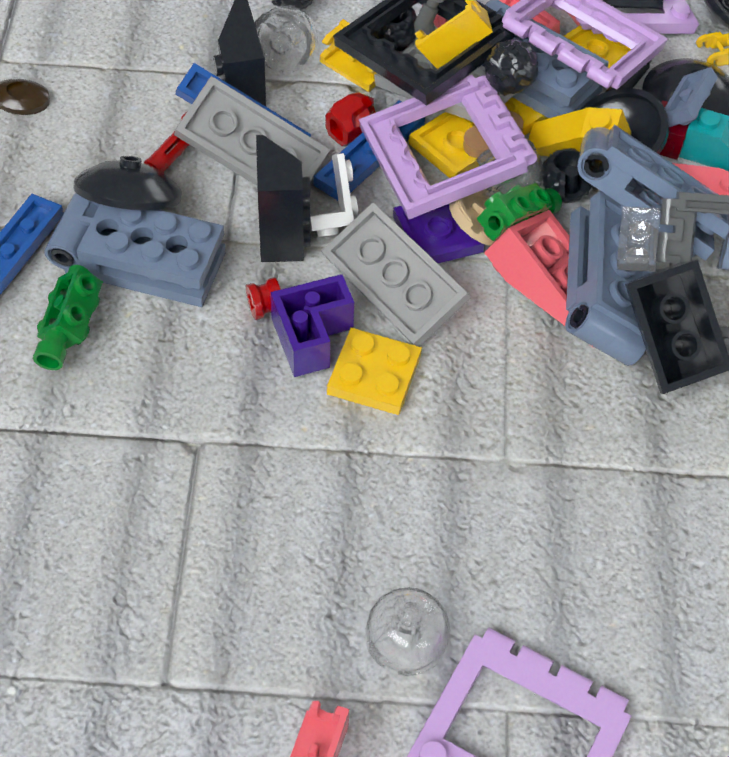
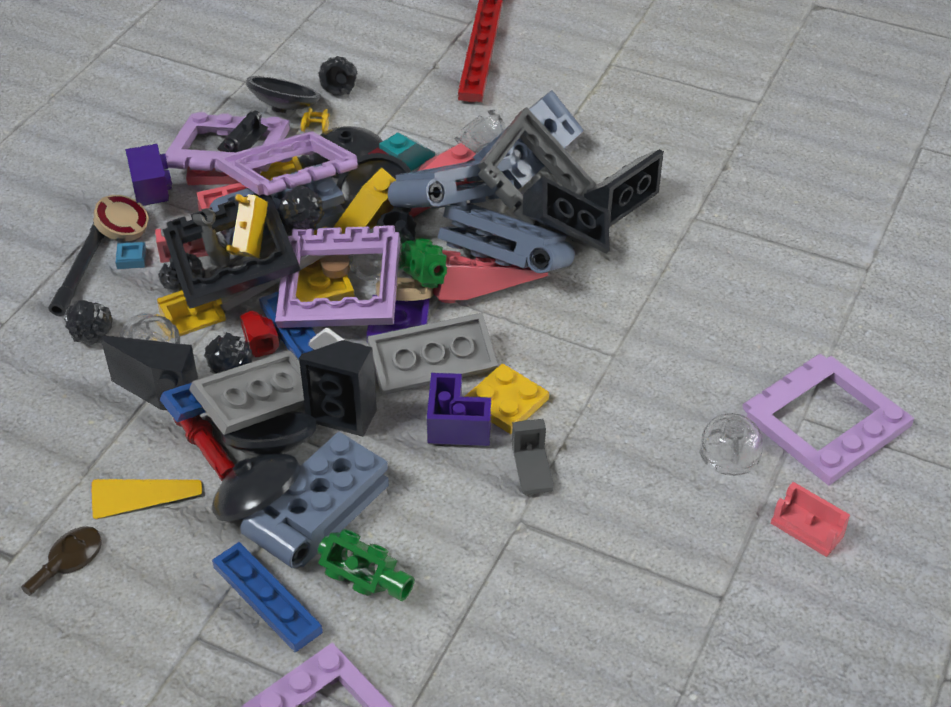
camera: 65 degrees left, 10 degrees down
(105, 113) = (126, 495): none -> yellow sticker
(204, 178) = (273, 435): none -> black dish
(260, 297) = (411, 437): red wheel -> none
(286, 422) = (531, 457): none -> dark grey bracket
(300, 104) = (227, 353): none -> black piece
(638, 239) = (497, 203): clear plate -> none
(690, 96) = (373, 139): sand blue plate -> none

